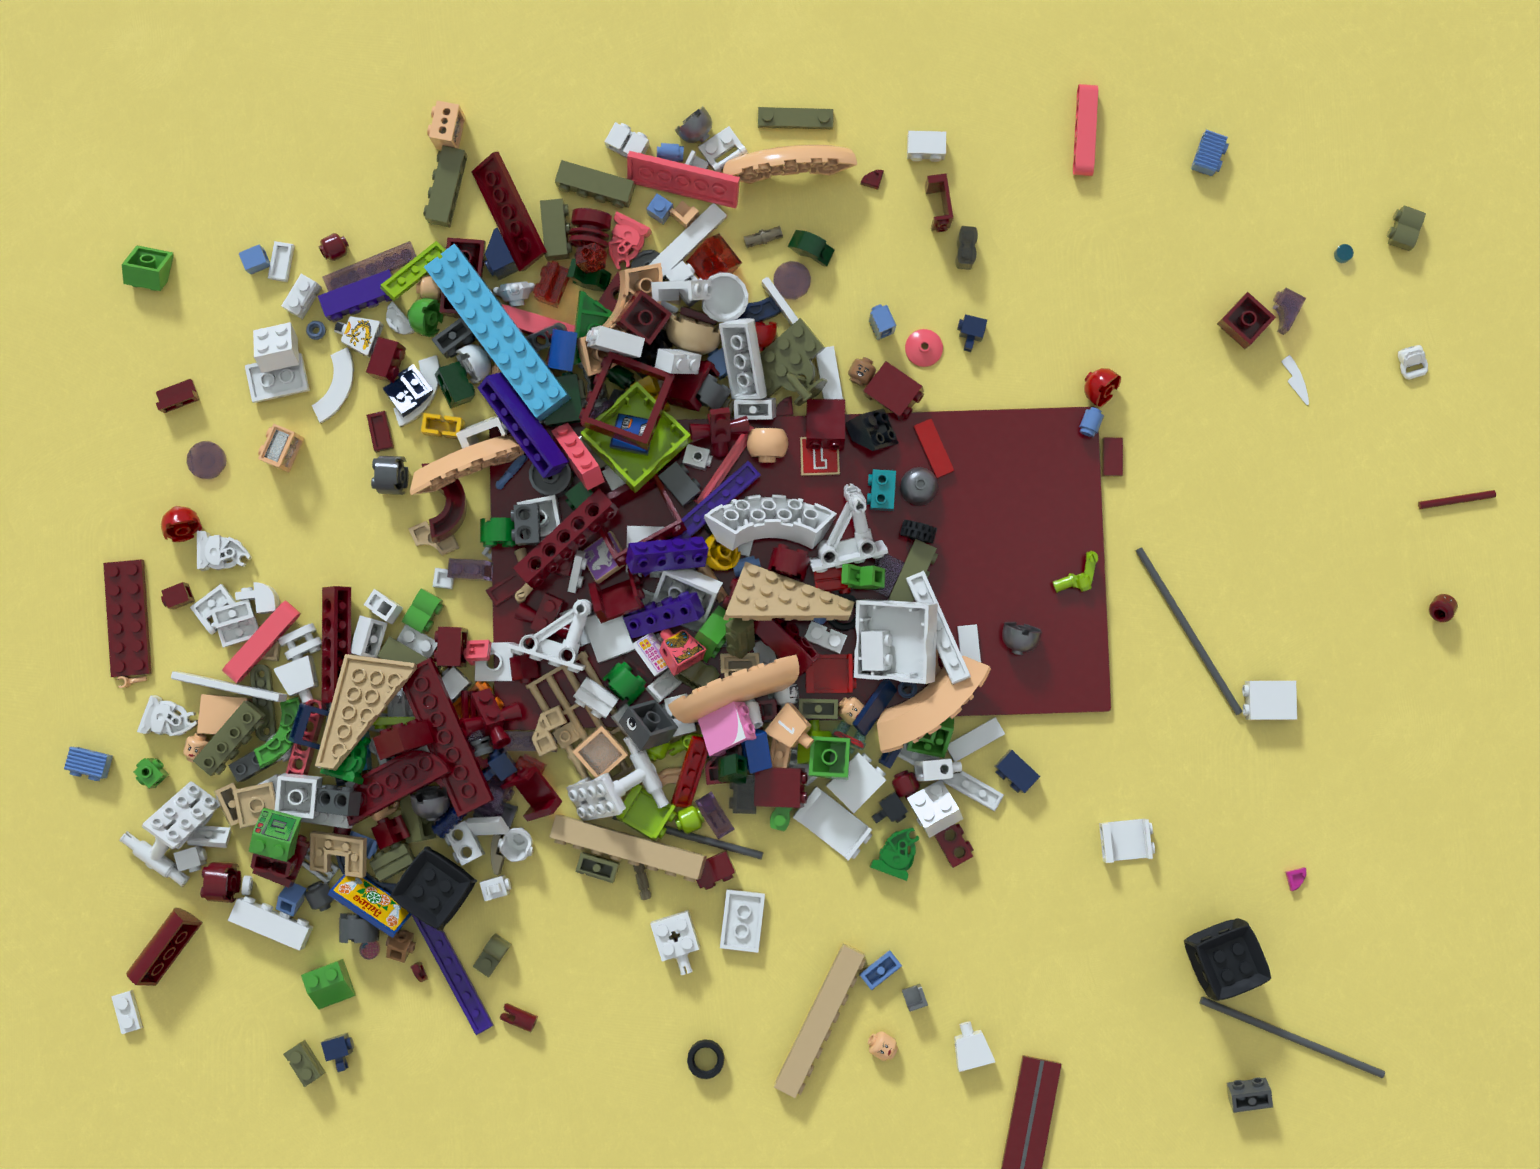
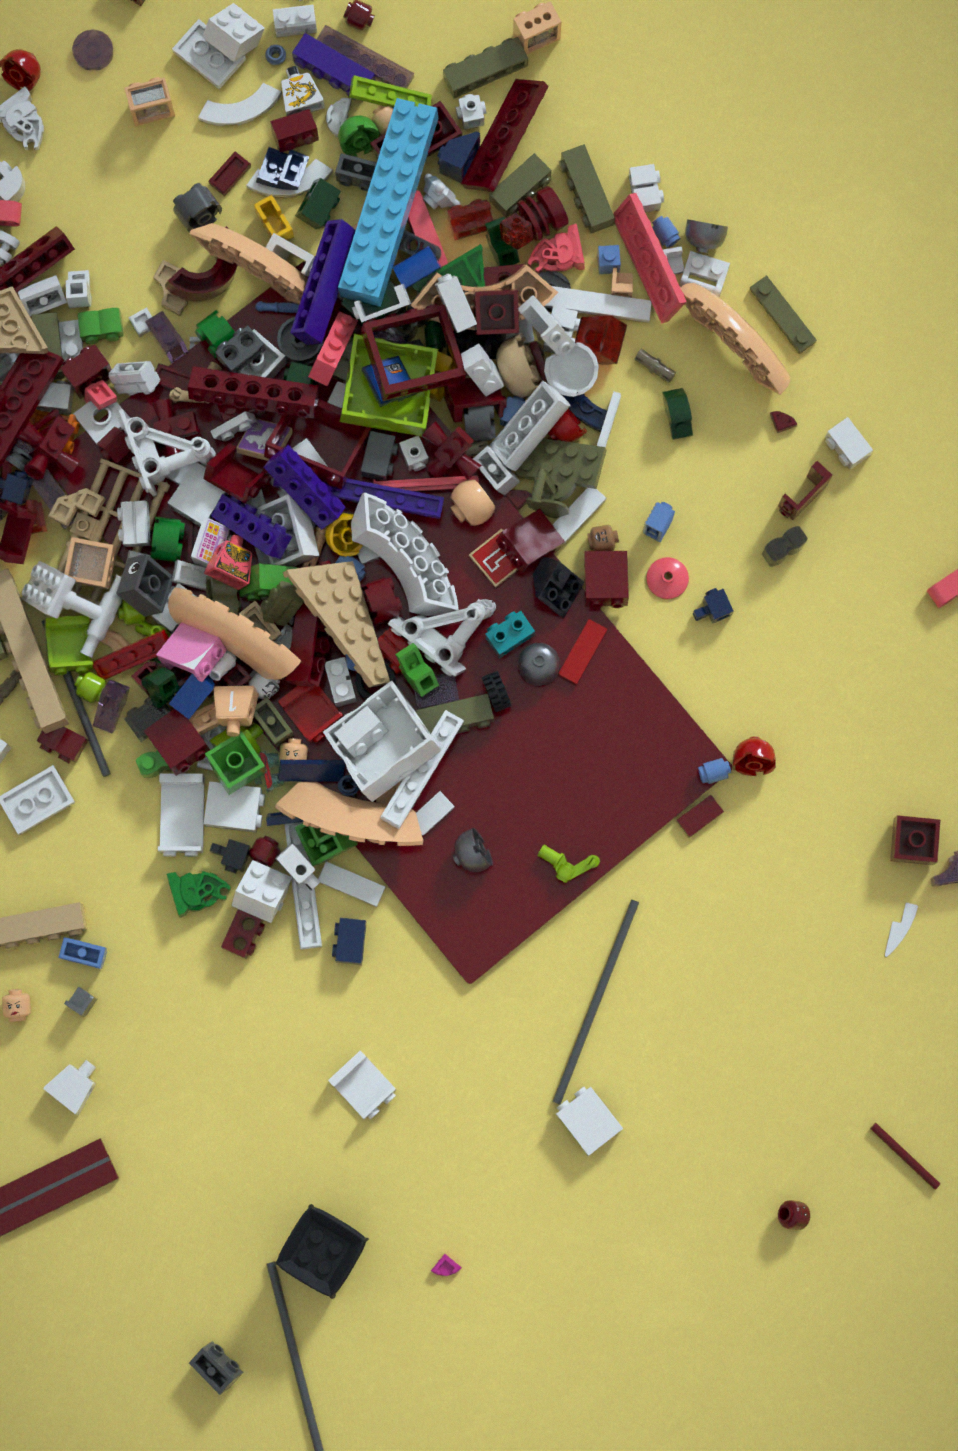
camera: 50 degrees right, 5 degrees down
(471, 221) = (471, 111): none -> white brick
(475, 361) = (350, 204): white cylinder -> none
(483, 616) = (134, 377): none -> white brick
(585, 380) = (402, 296): none -> white panel
(792, 280) = (636, 419): tile -> none

